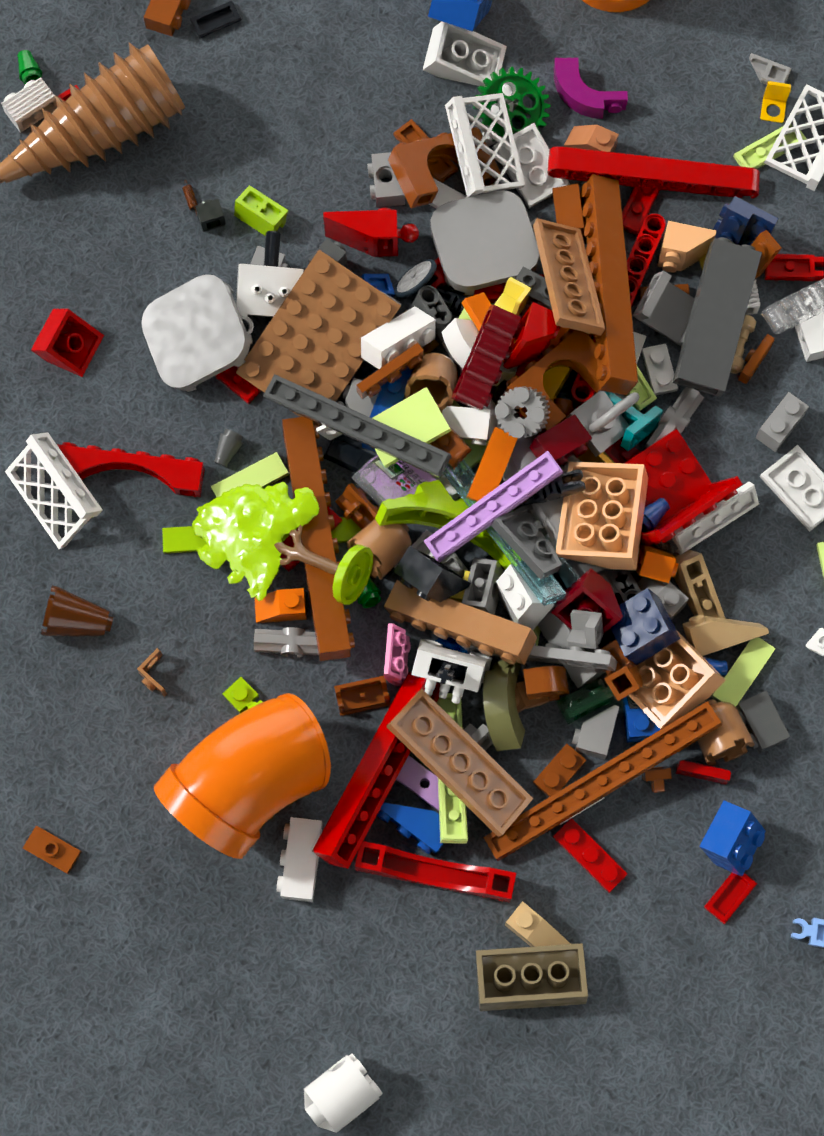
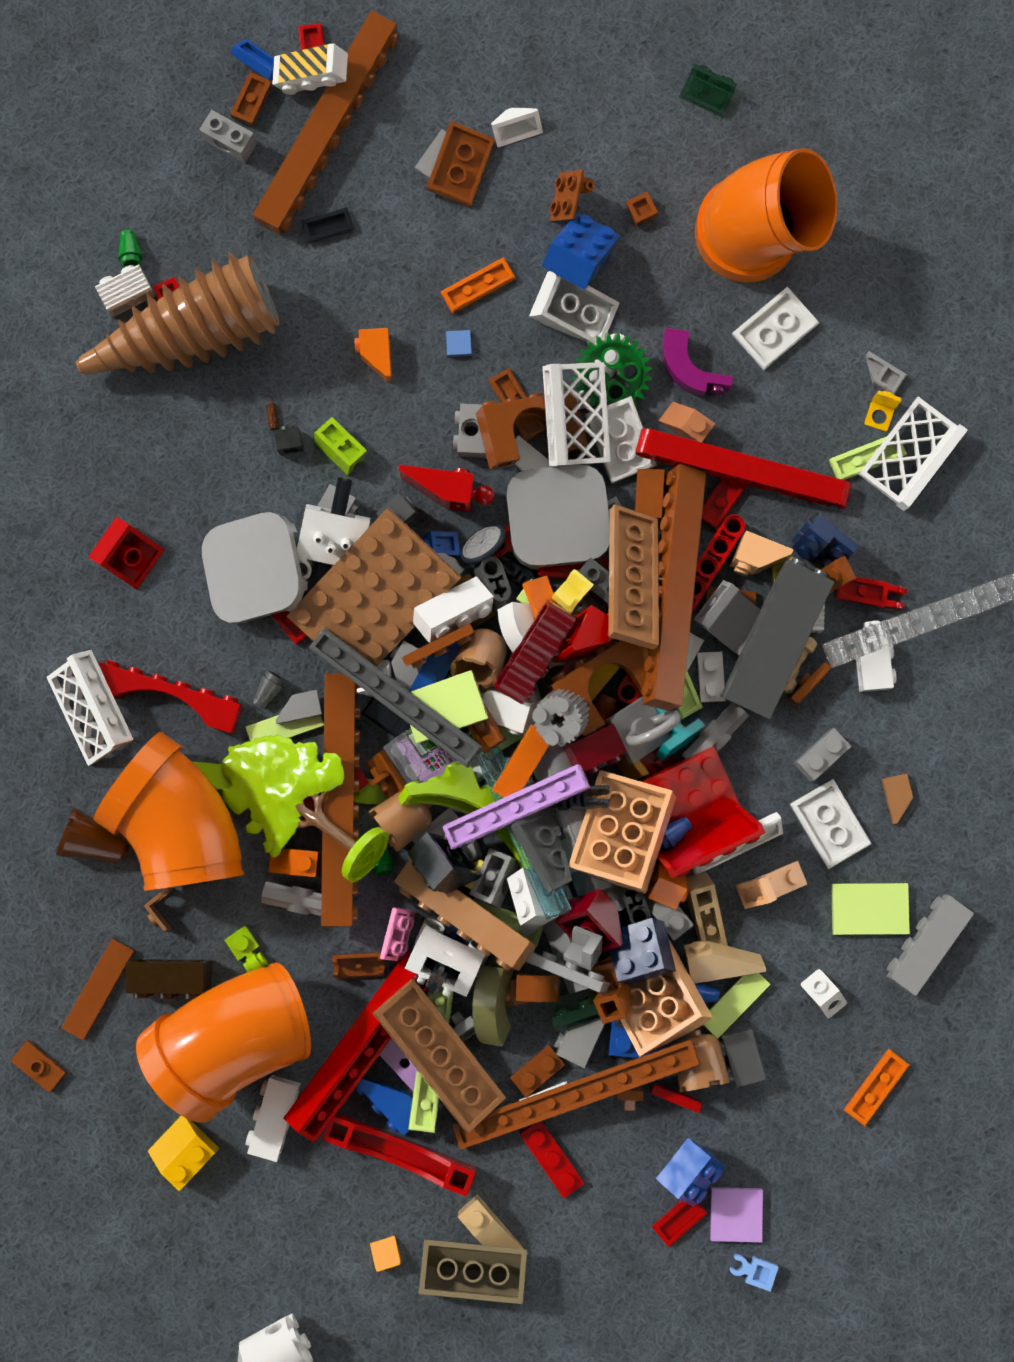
camera: 10 degrees right, 10 degrees up
(101, 763) = (98, 989): none -> dark orange tile
(154, 576) = (171, 818): none -> orange cylinder
(170, 733) = (168, 977): none -> dark brown brick
(213, 909) = (182, 1152): none -> yellow slope
(262, 458) = (300, 707): none -> light grey tile
(280, 122) = (375, 350): none -> orange slope
(359, 105) = (458, 343): none -> medium blue tile
(368, 51) = (478, 285): none -> orange tile
(438, 978) = (385, 1253): none -> light orange slope
(658, 47) = (775, 328): none -> white tile
(756, 552) = (771, 885): none -> light nougat bracket
(787, 880) = (736, 1214): none -> lavender tile

